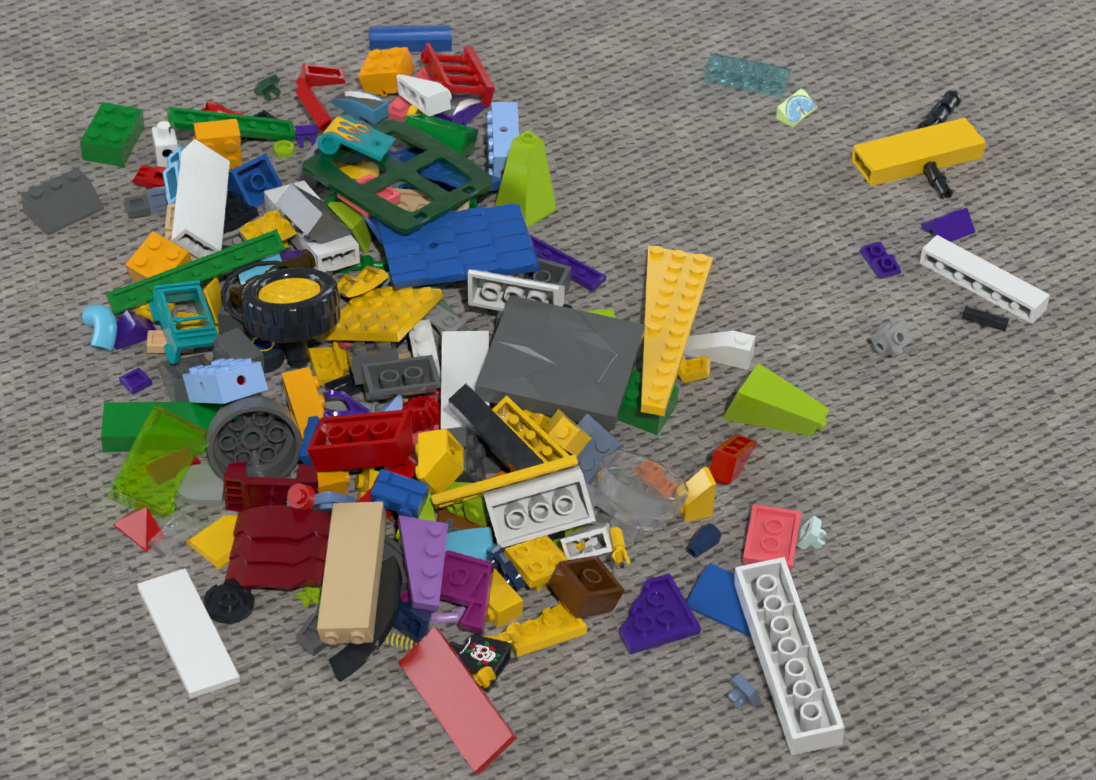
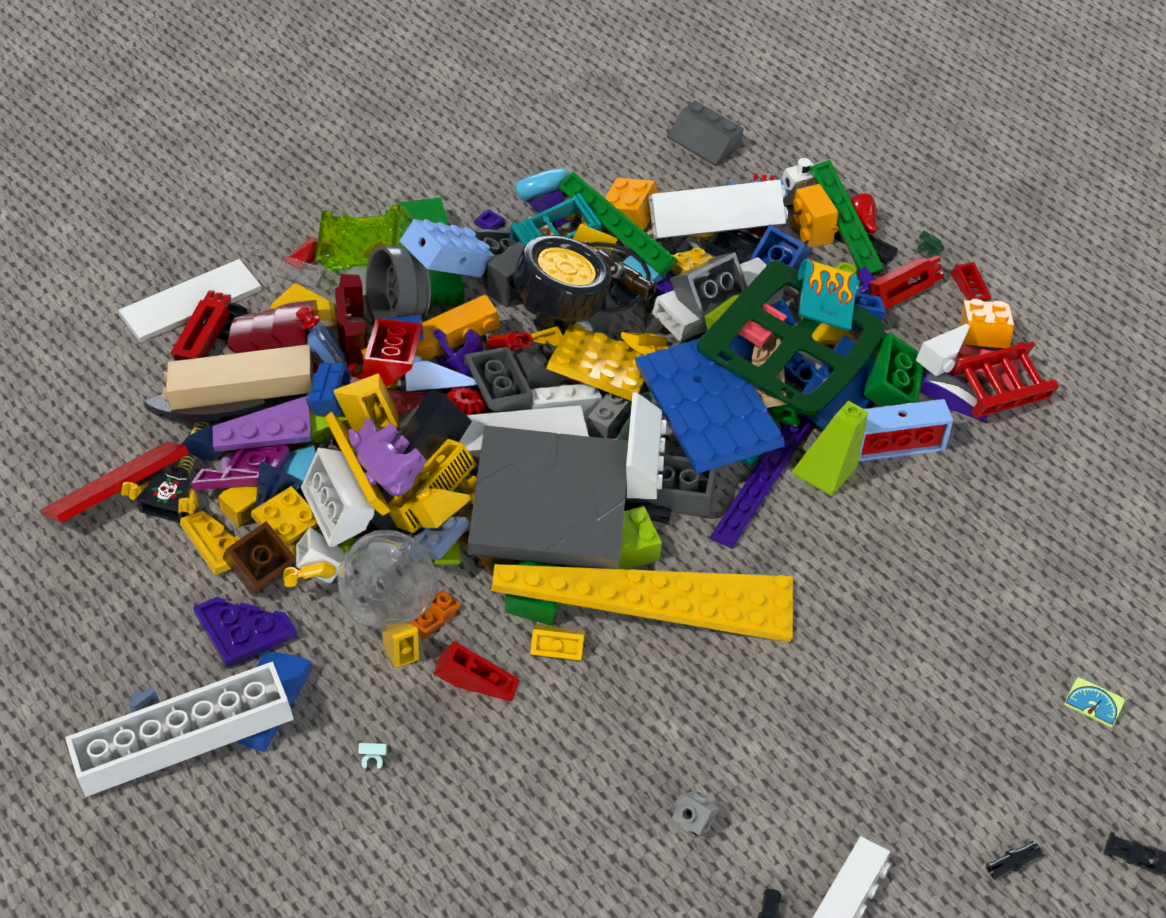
camera: 80 degrees right, 5 degrees up
(112, 134) = (813, 143): green brick -> none
(137, 206) = (717, 179): dark grey plate -> none
(256, 622) = (197, 340): none -> red hinge
(353, 363) = (511, 340): none -> red pin
(362, 105) = (929, 317): dark azure slope -> none
(412, 37) = (1066, 342): blue slope -> none
(522, 449) = (385, 457): none -> medium lavender animal
(694, 369) = (603, 628): yellow bracket -> none
(699, 399) = (557, 642): none -> yellow panel
(704, 539) = (352, 659): dark blue cone -> none
(723, 347) = (642, 655): white slope -> none
(747, 75) = (1132, 647): clear light blue brick -> none
(771, 535) = (364, 718): coral plate -> none
(776, 404) = (557, 701): lime slope -> none
(879, 261) = (838, 806): dark purple slope -> none
(908, 152) = (1066, 839): yellow brick -> none
(951, 225) = (929, 875): dark purple panel -> none

